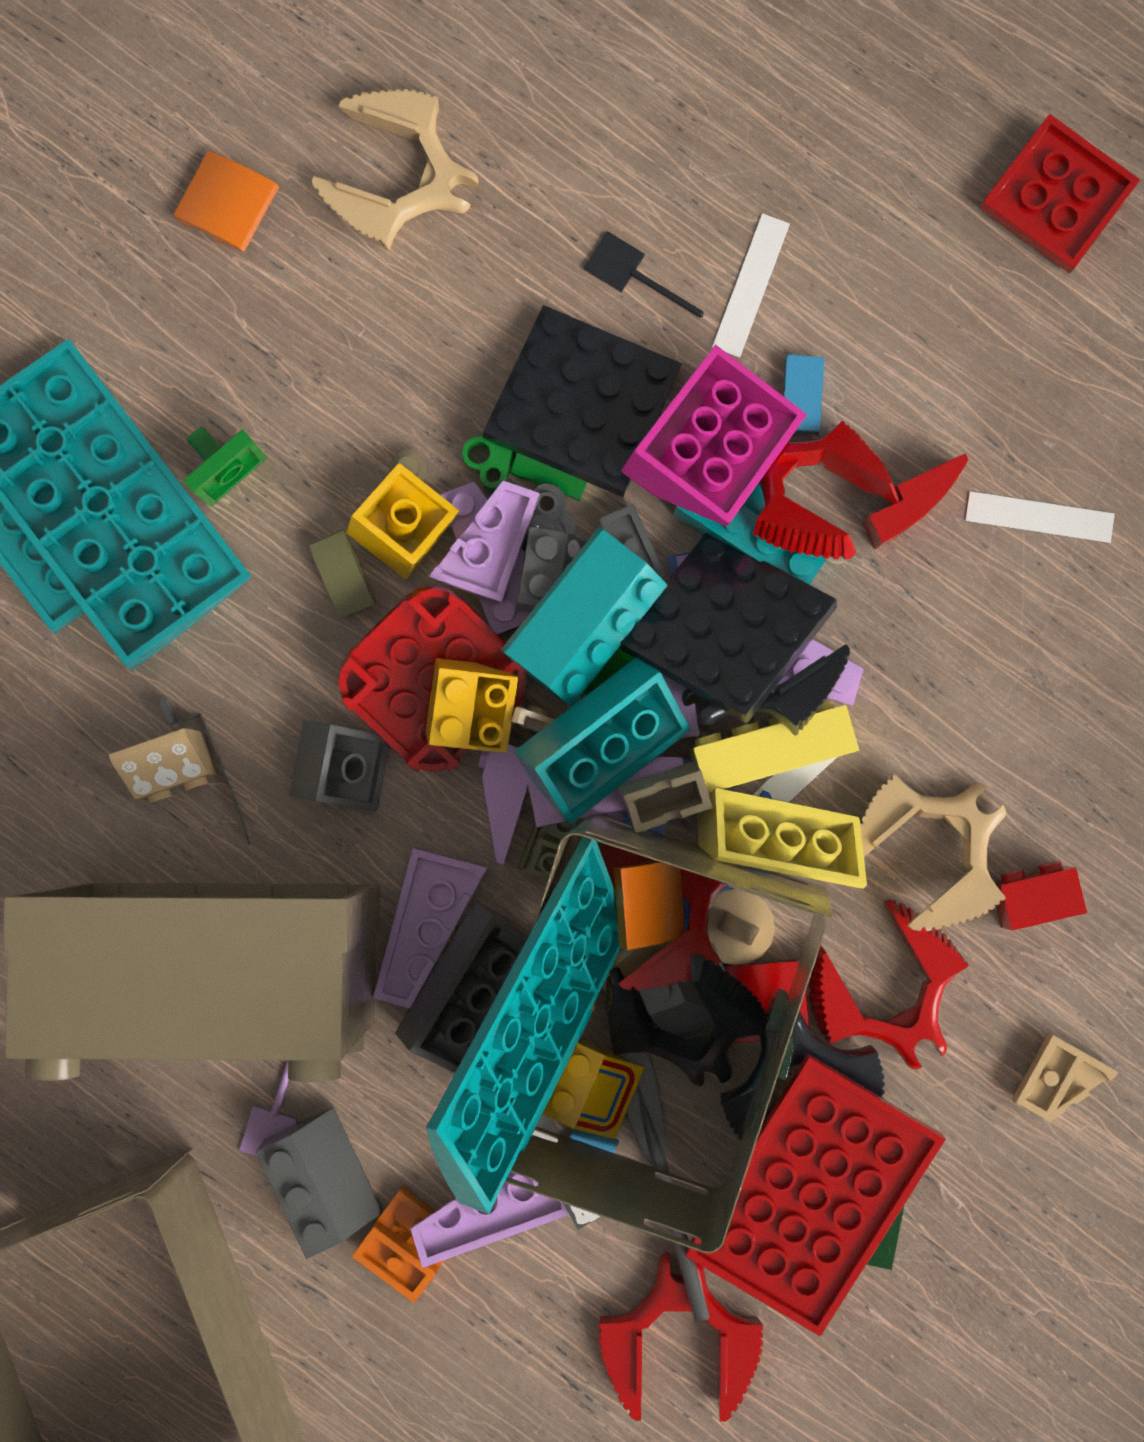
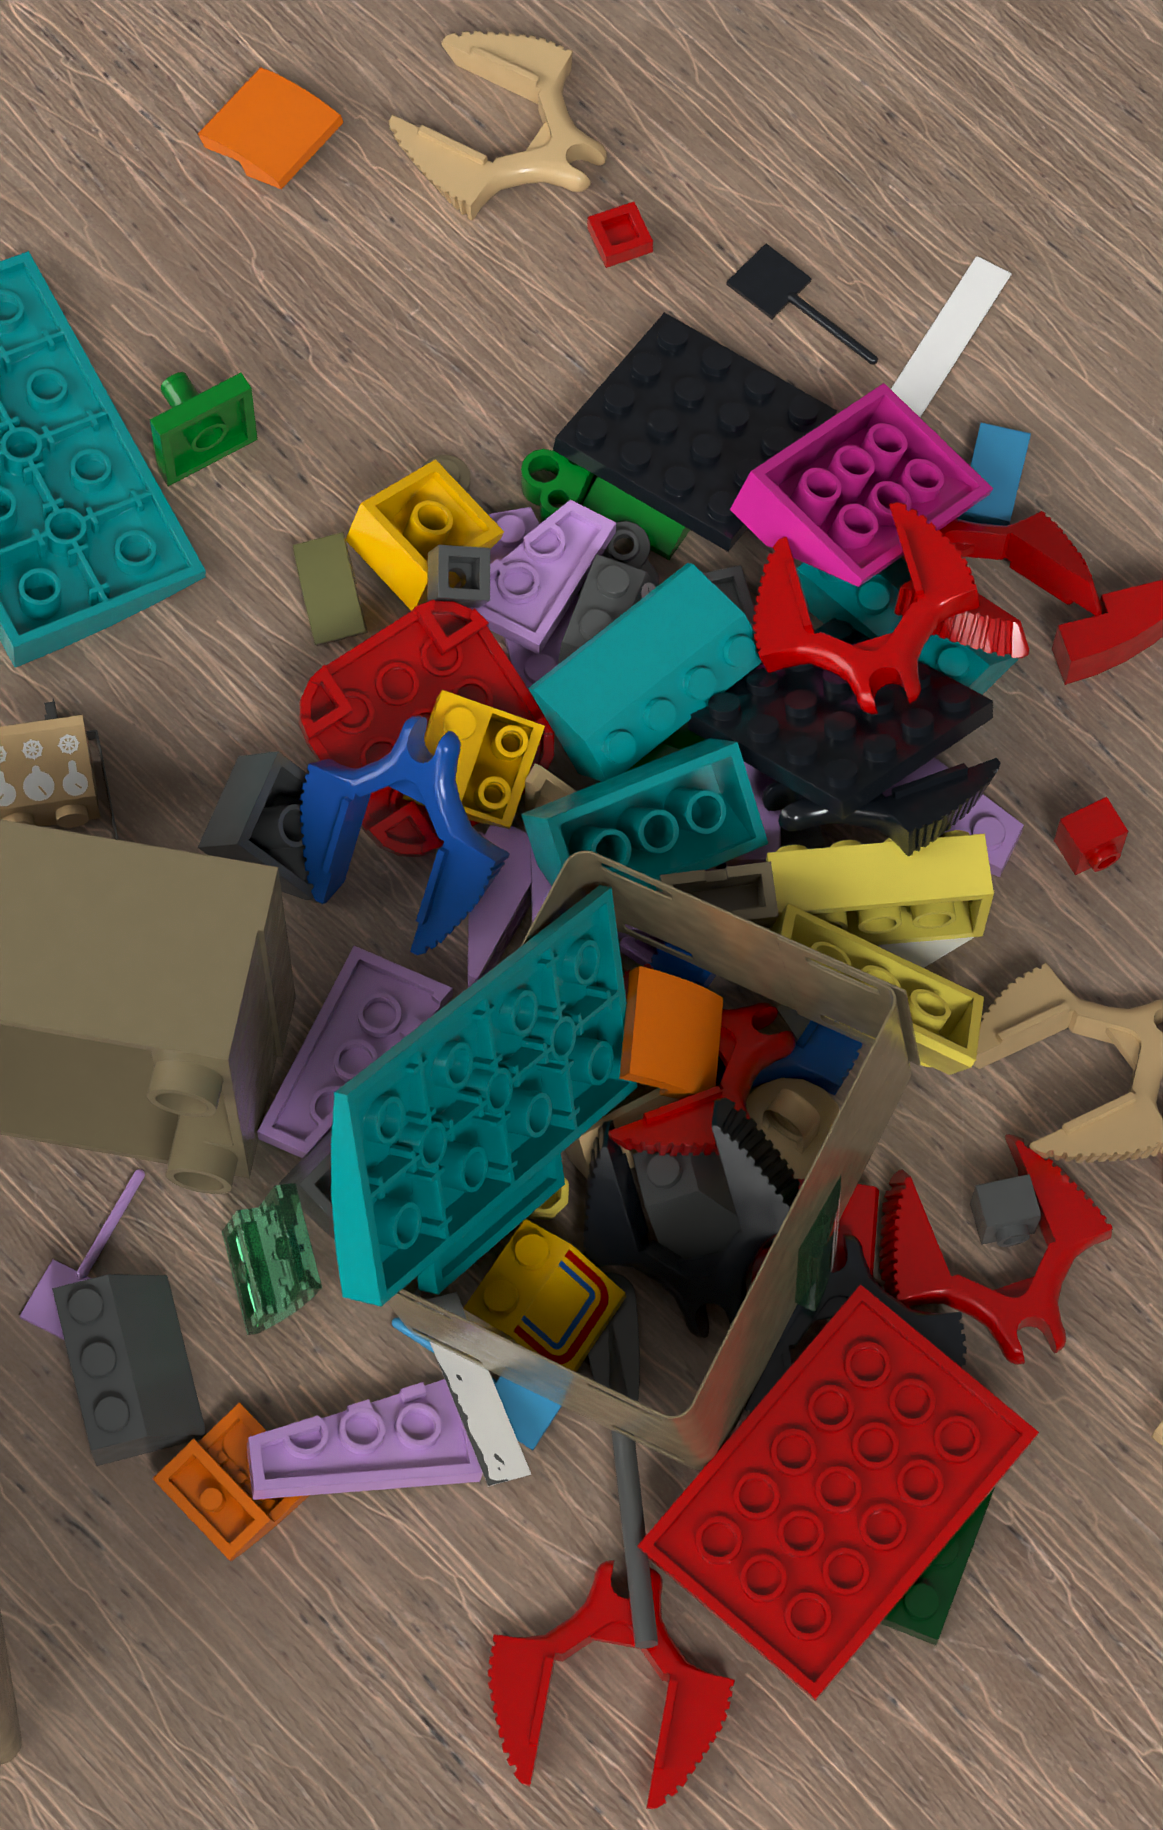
camera: 10 degrees right, 20 degrees down
(379, 759) = (336, 806): none -> blue piece
(400, 1093) = (271, 1259): none -> clear green slope
(446, 566) = (472, 567): none -> dark grey plate
(499, 245) = (620, 234): none -> red plate
(681, 571) = (789, 638): none -> red piece
(893, 962) = (1005, 1211): none -> dark grey plate
(913, 672) = (1091, 837): none -> red plate

